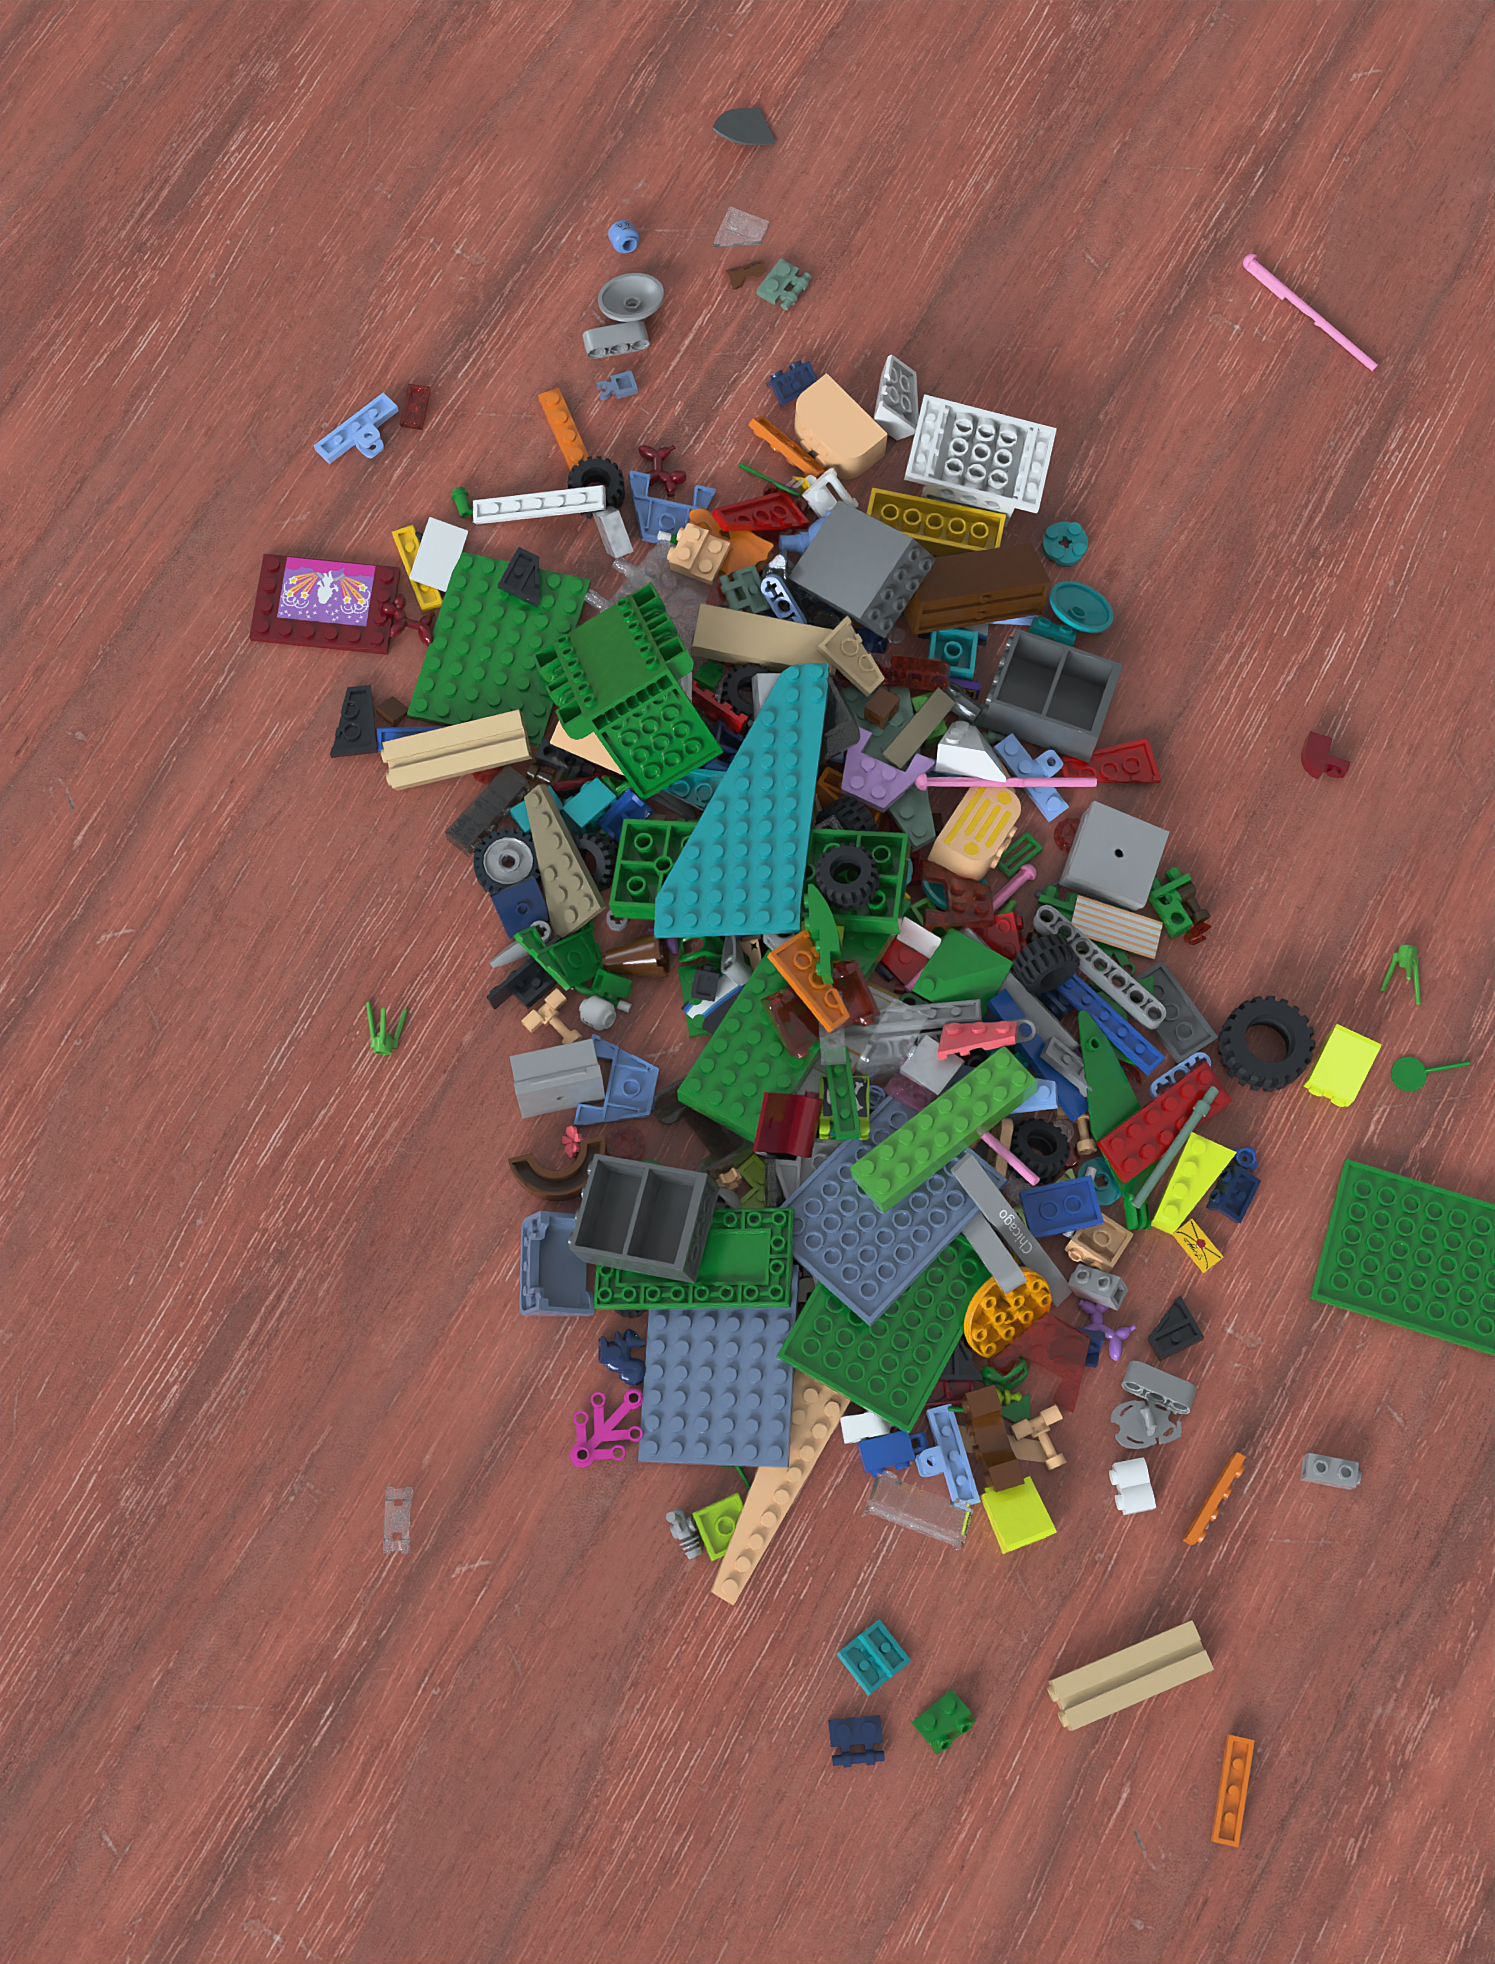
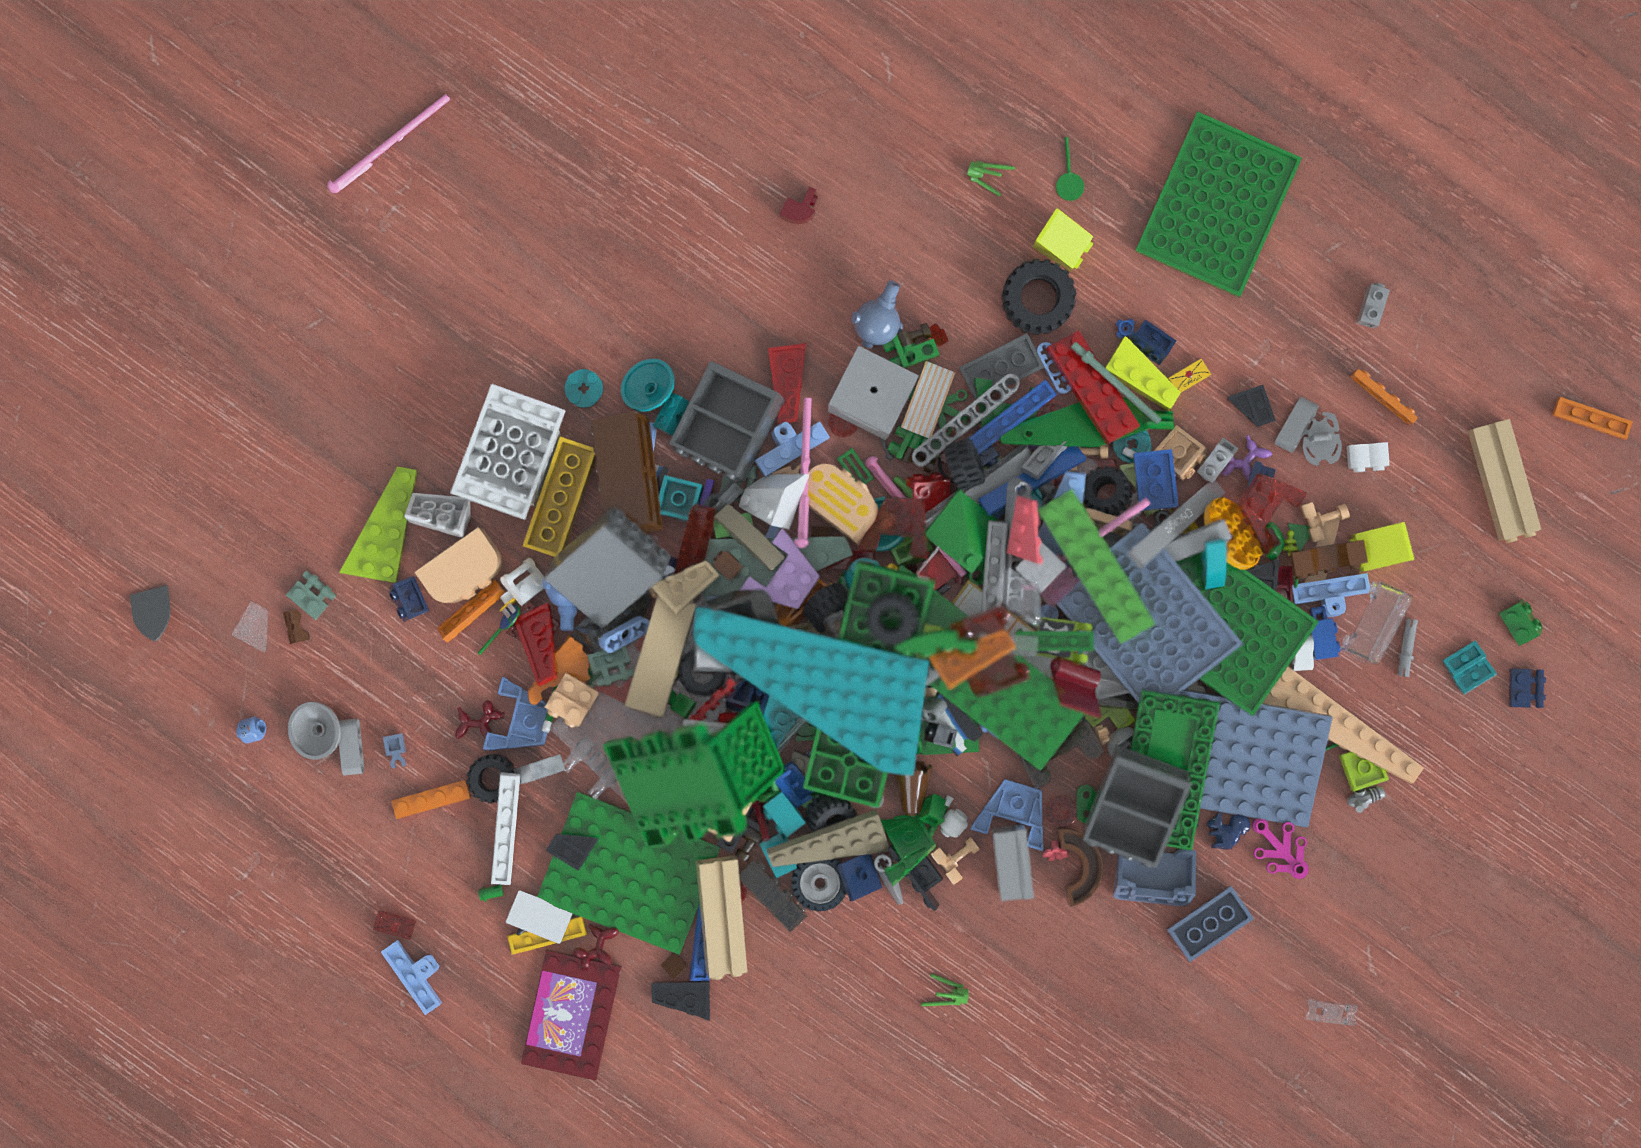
camera: 80 degrees left, 15 degrees up
(500, 1343) = (1210, 923): none -> sand blue brick
(855, 350) = (382, 540): none -> lime wing
(889, 1568) = (1407, 647): none -> light grey pin
(967, 1279) = (1214, 563): none -> teal slope
(1205, 855) = (878, 319): none -> sand blue piece

